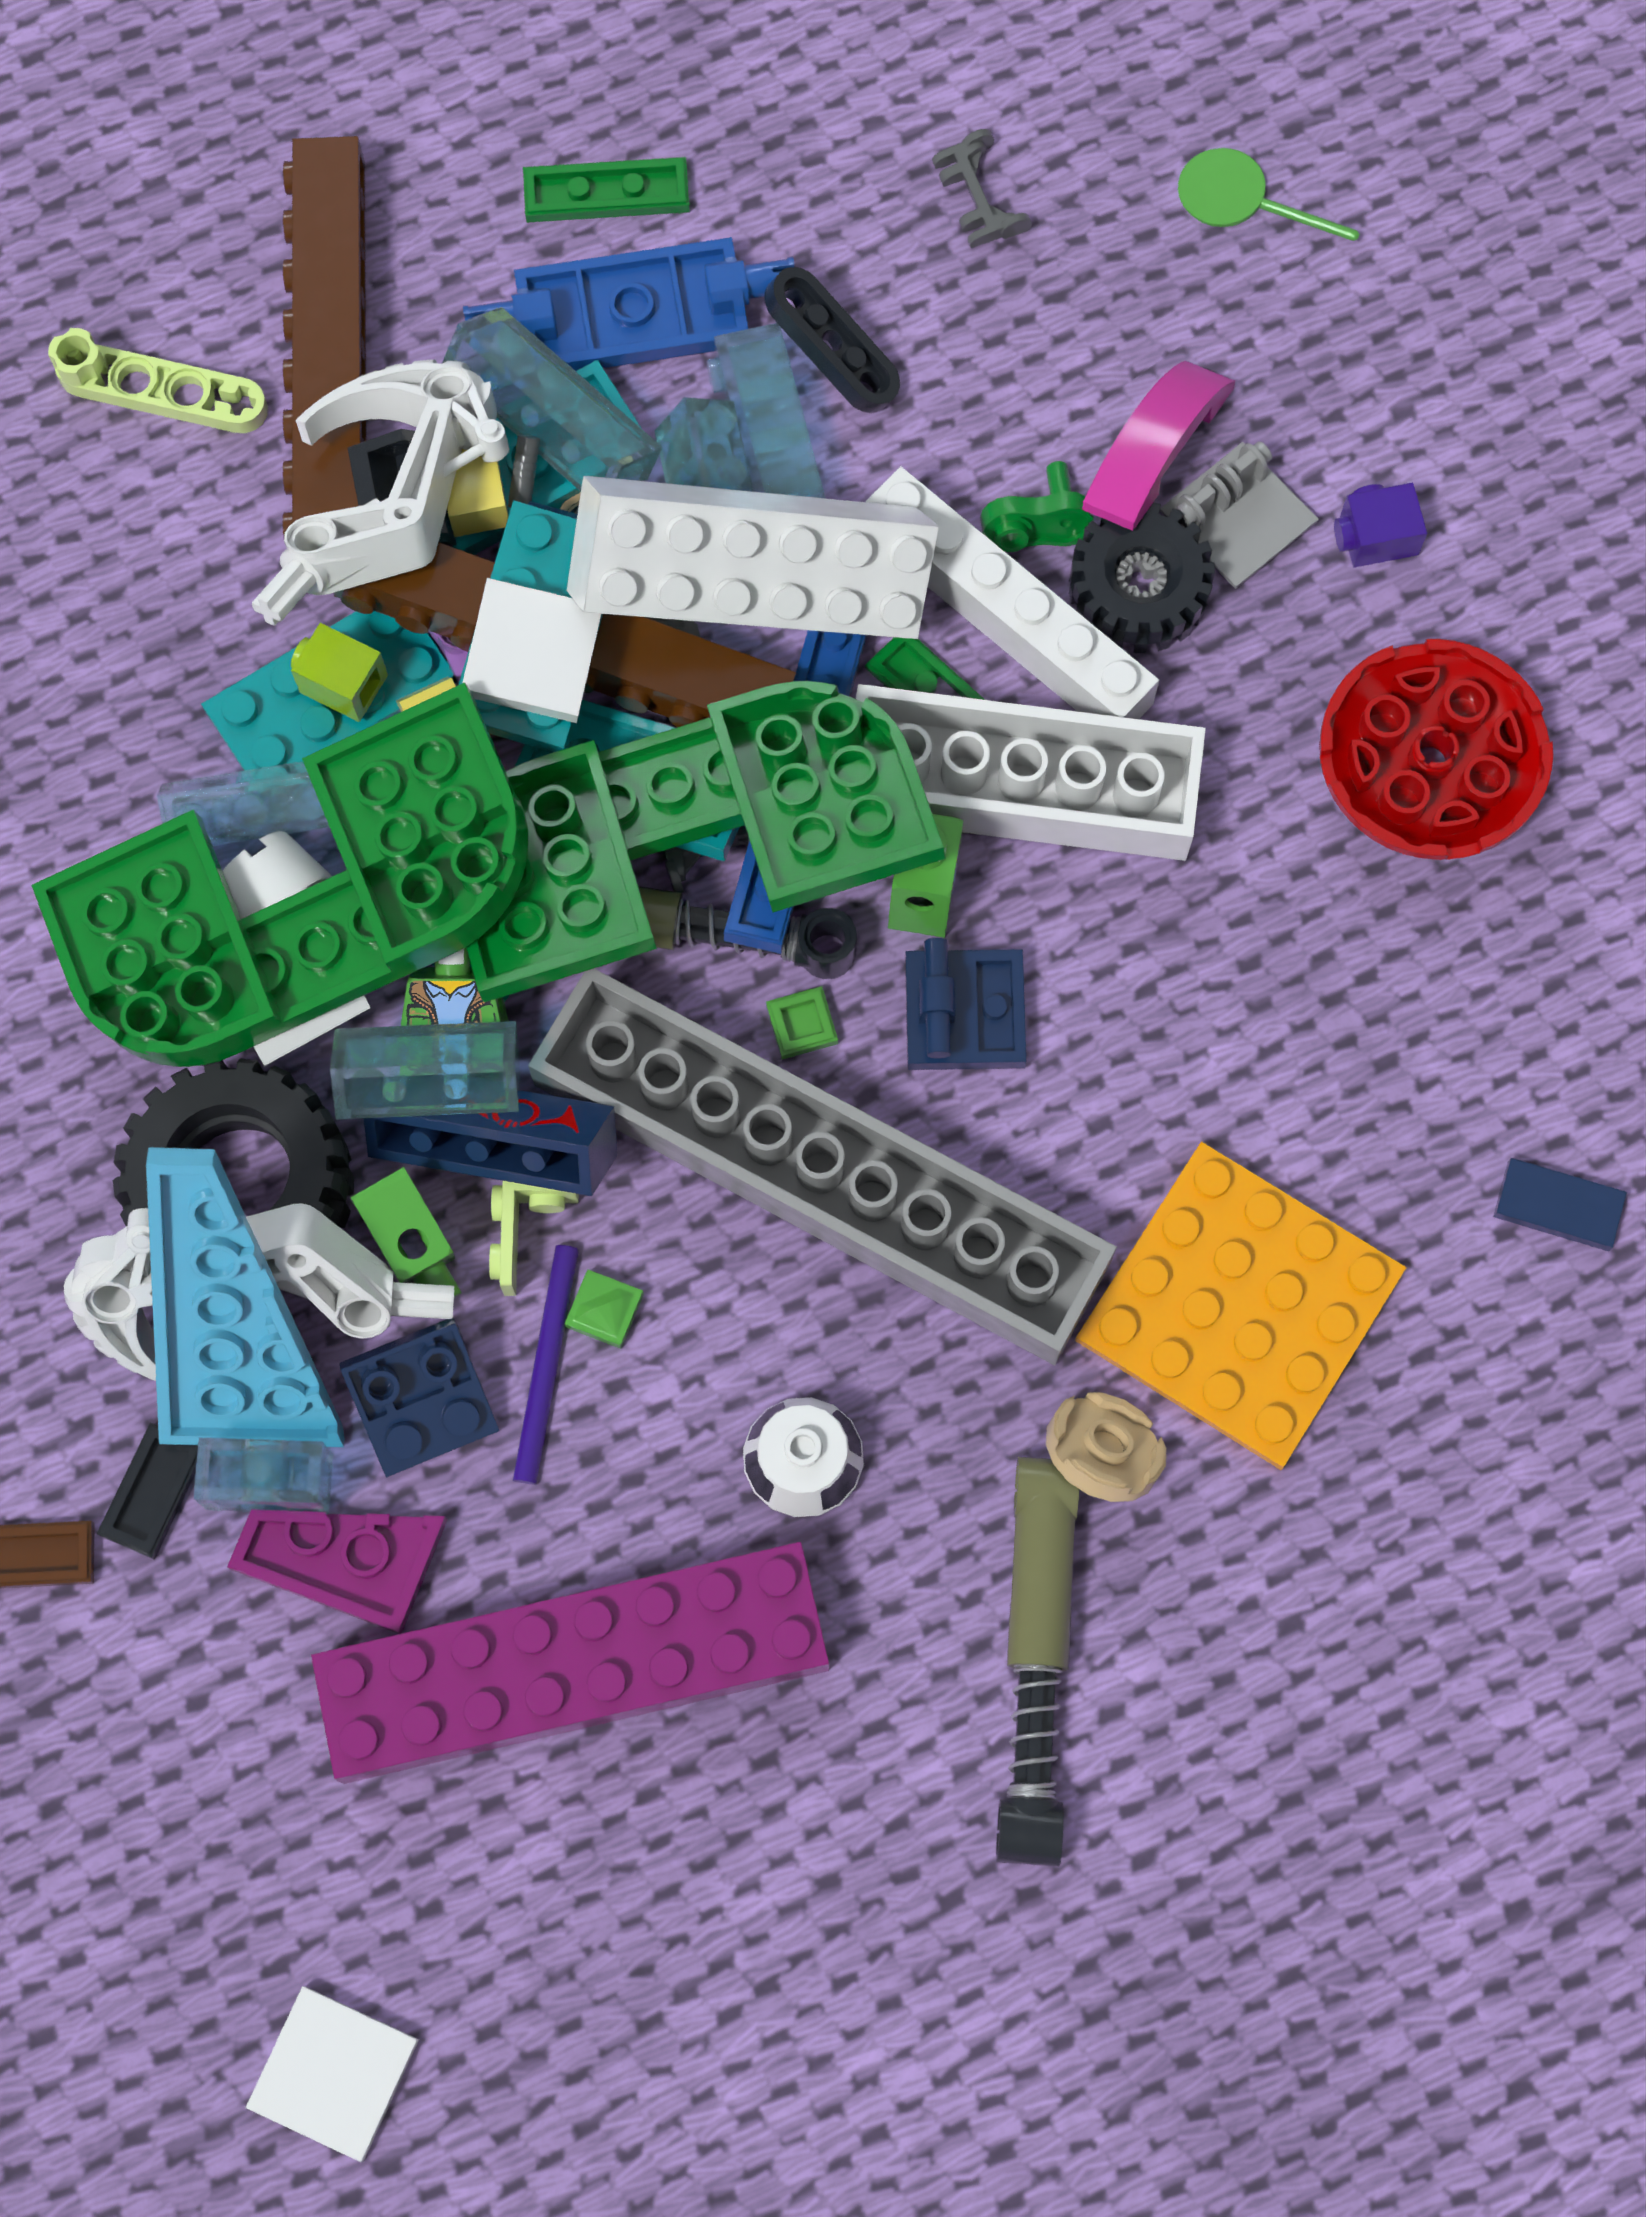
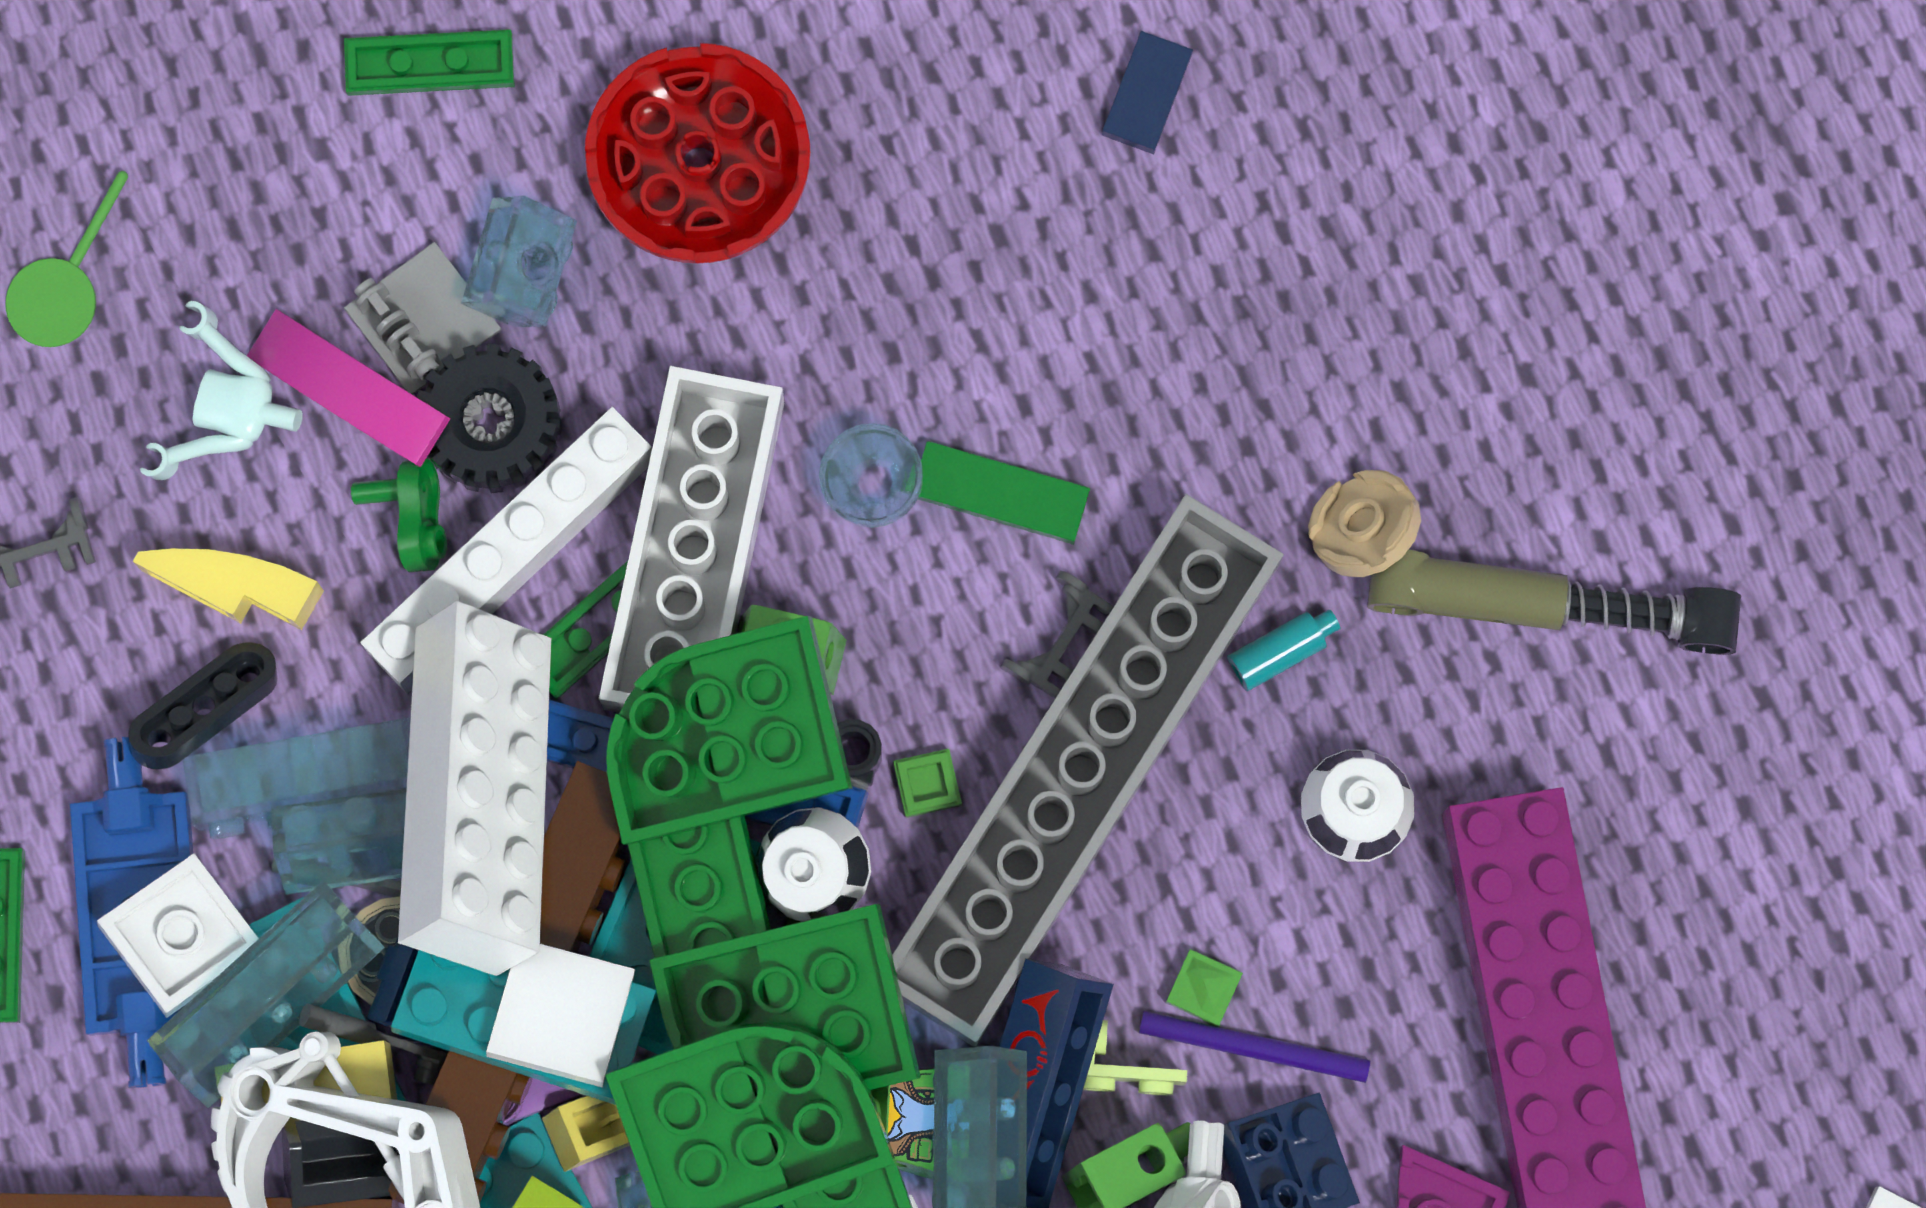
camera: 90 degrees left, 5 degrees up
(609, 331) = (178, 934): none -> white tile
(698, 892) = (813, 864): none -> white cone
(954, 363) = (234, 582): none -> light yellow slope
(964, 1008) = (926, 624): dark blue plate -> none
(966, 1371) = (1282, 648): none -> teal cylinder
(998, 1162) = (1079, 603): none -> dark grey piece
(1110, 1078) = (1002, 492): none -> green tile
(1120, 918) = (865, 448): none -> clear light blue piece
(1135, 338) = (225, 403): none -> light aqua piece
(1240, 1305) = (1228, 390): light orange plate -> none
(1279, 568) = (497, 283): none -> clear light blue brick
(1380, 524) = (449, 182): dark purple brick -> none
(1504, 502) = (429, 62): none -> green tile

